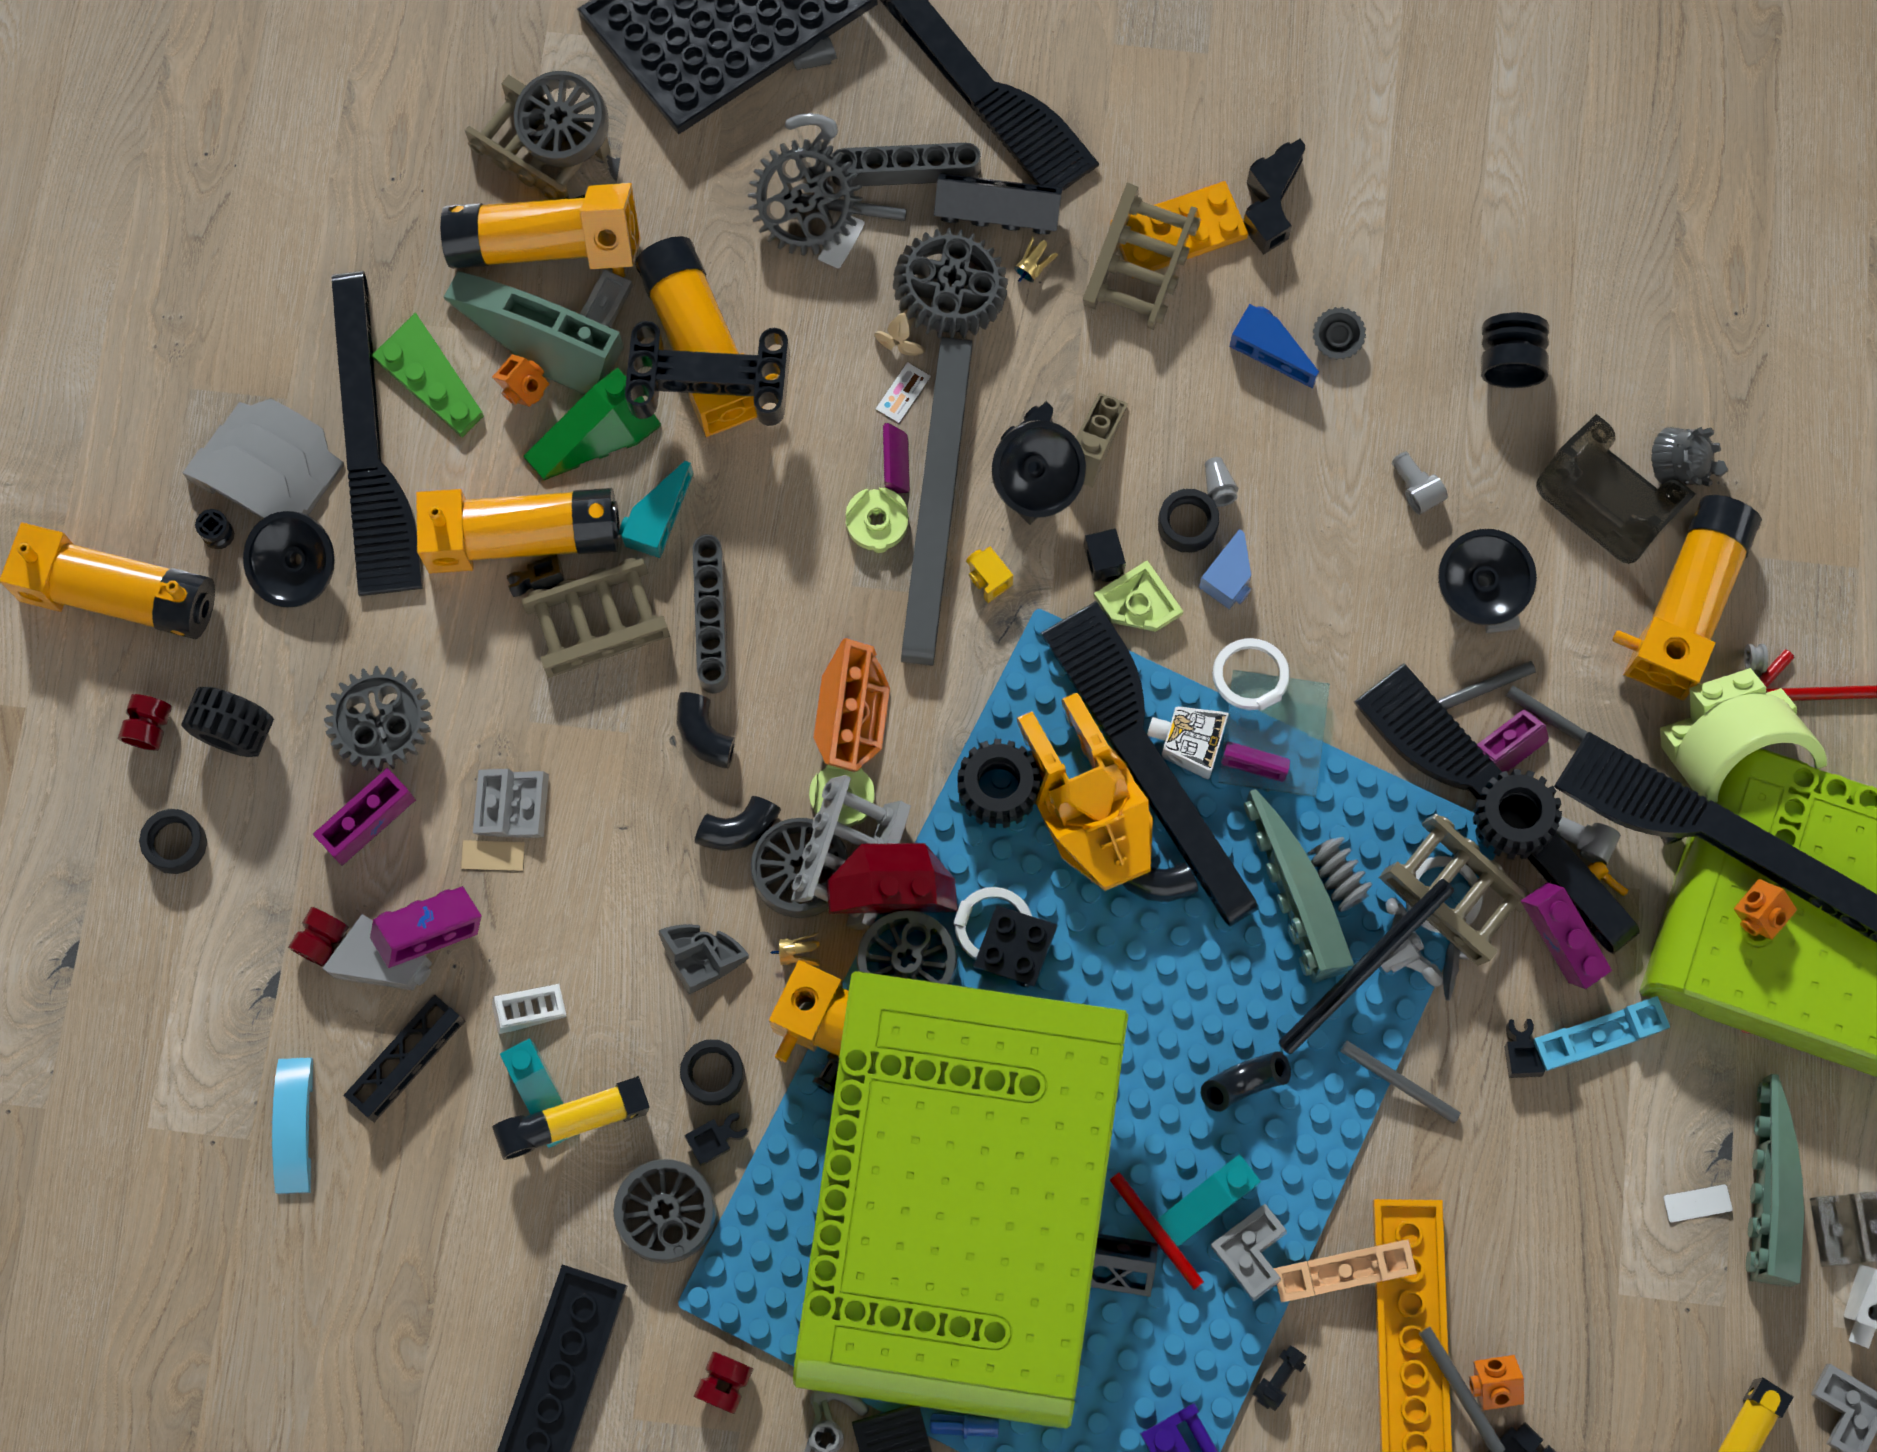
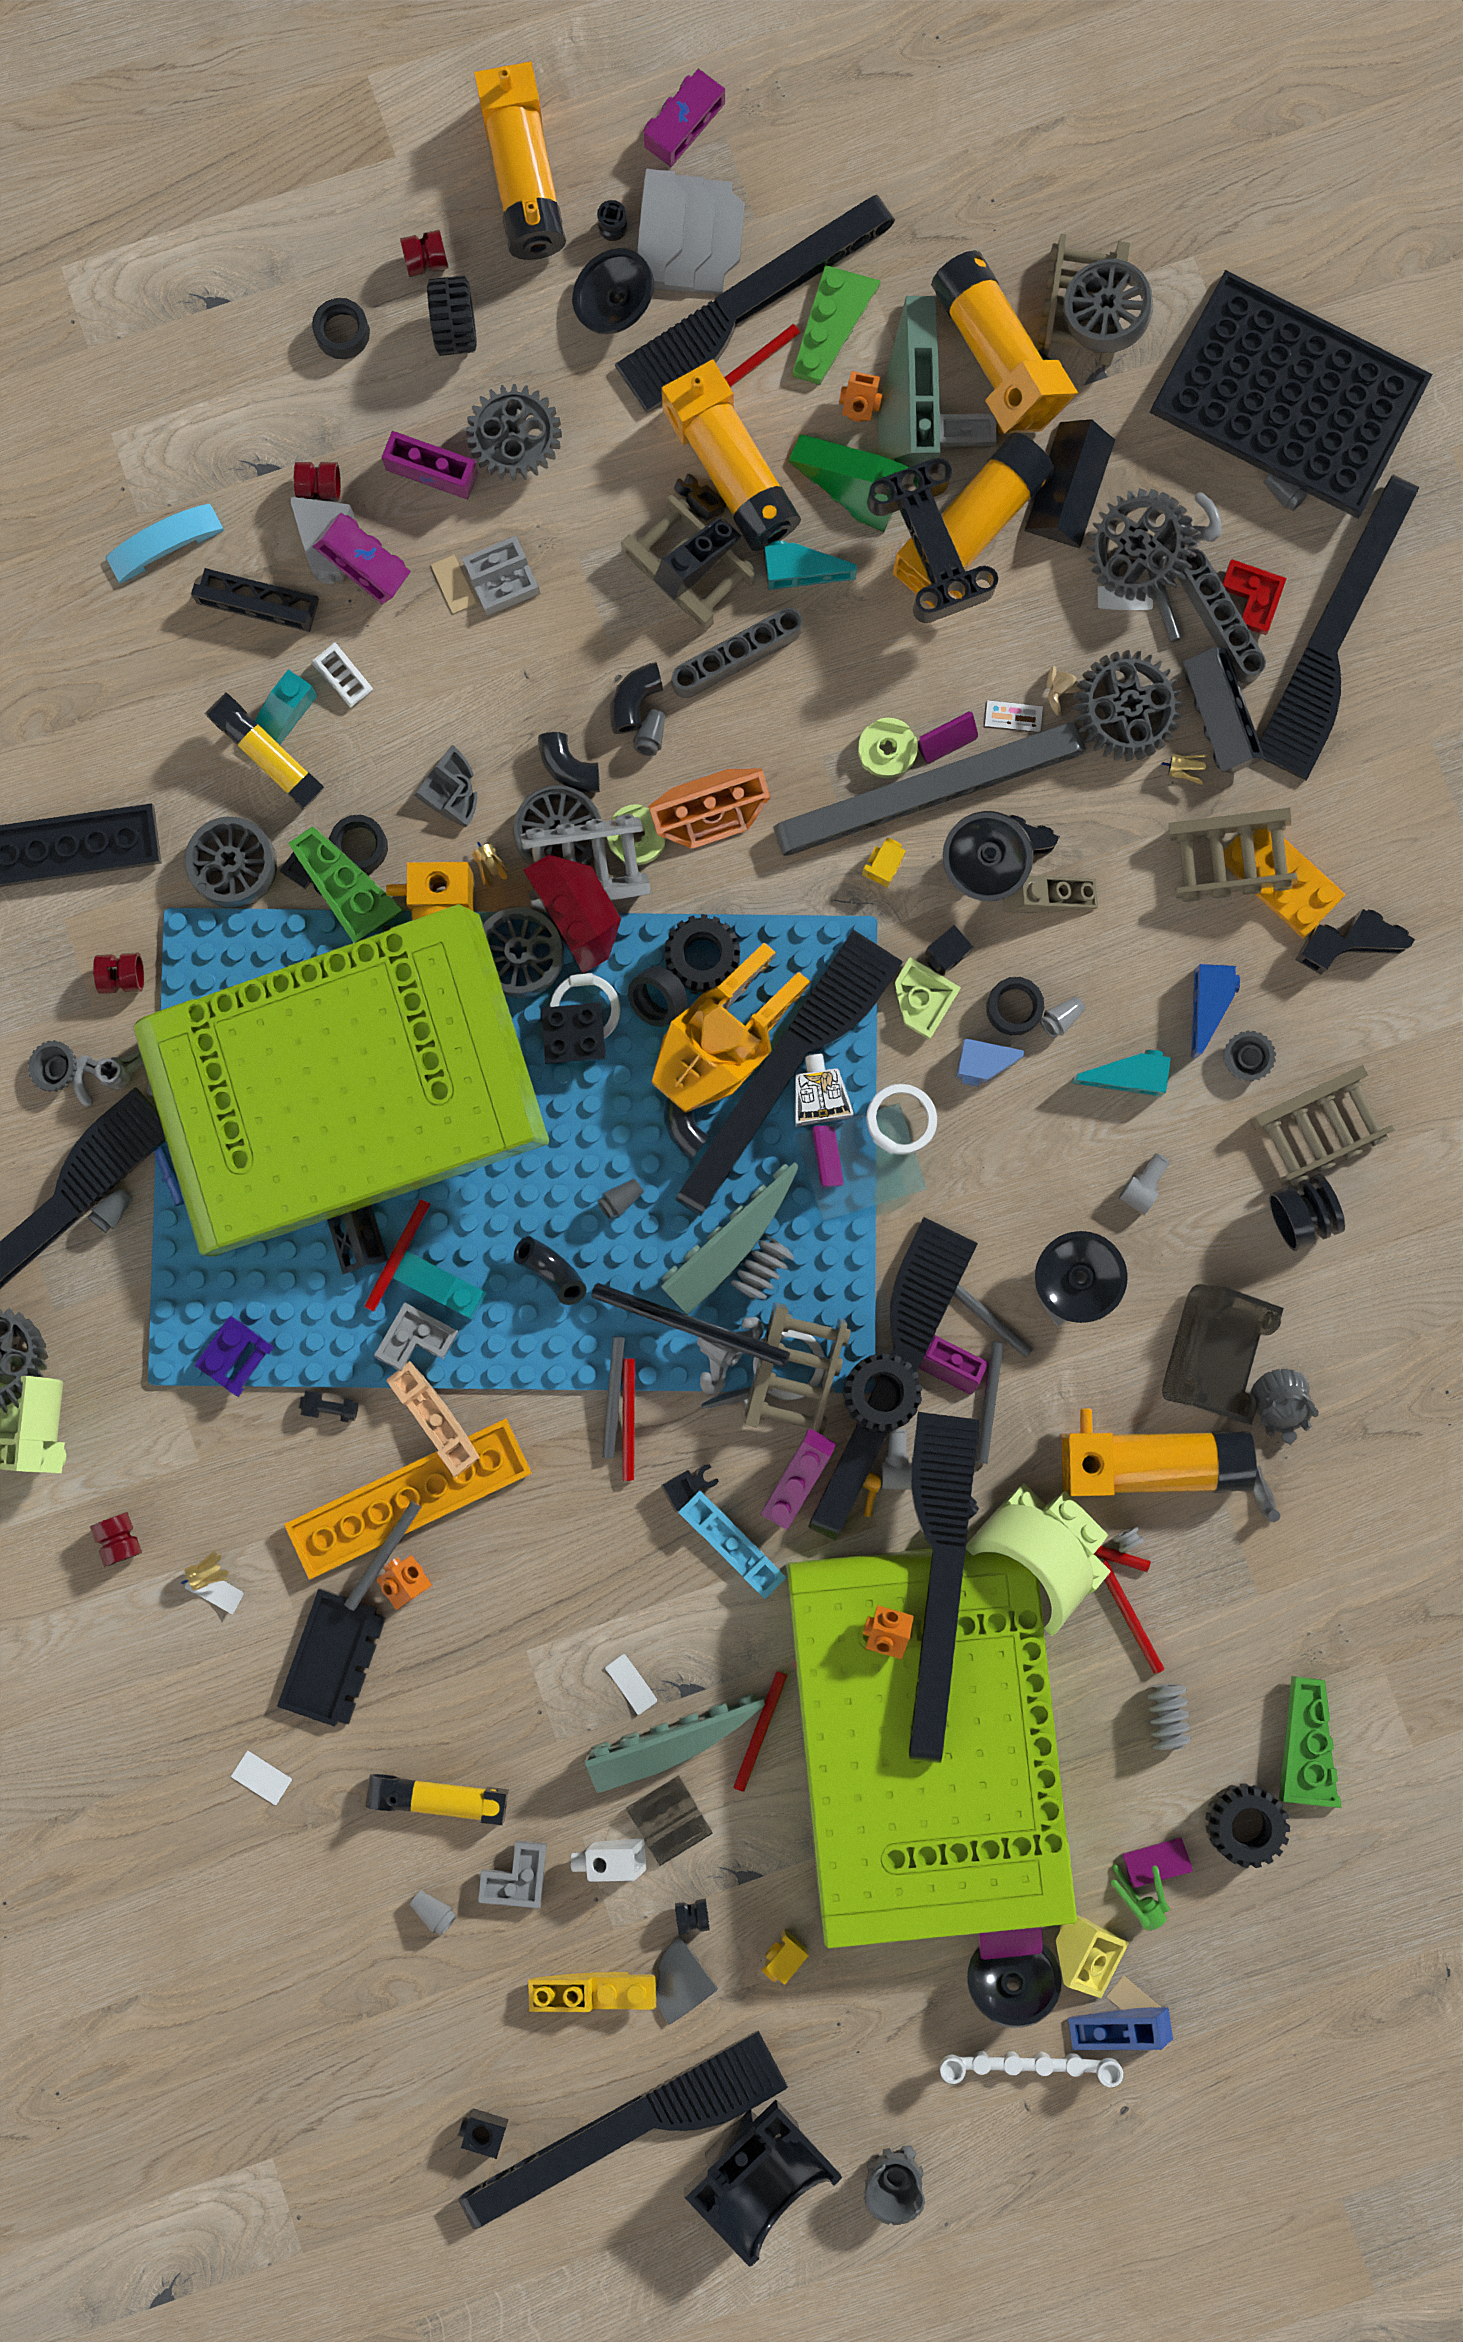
camera: 60 degrees right, 10 degrees up
(150, 415) = (683, 117): none -> magenta brick
(424, 450) = (761, 355): none -> red bar
(600, 603) = (695, 557): none -> black slope
(722, 246) = (1068, 497): none -> black slope
(748, 734) = (650, 734): none -> dark grey cone
(757, 1102) = (348, 890): none -> bright green wing
(898, 119) = (1259, 588): none -> red plate
(1026, 863) = (670, 987): none -> black tyre
(1203, 980) = (620, 1198): none -> dark grey cone
(1309, 438) = (1134, 1074): none -> teal slope
(1407, 315) = (1323, 1096): none -> dark tan fence
(1429, 1078) = (628, 1423): none -> red bar
(1777, 520) = (1264, 1498): none -> flat silver bar
(1800, 1098) = (760, 1731): none -> red bar

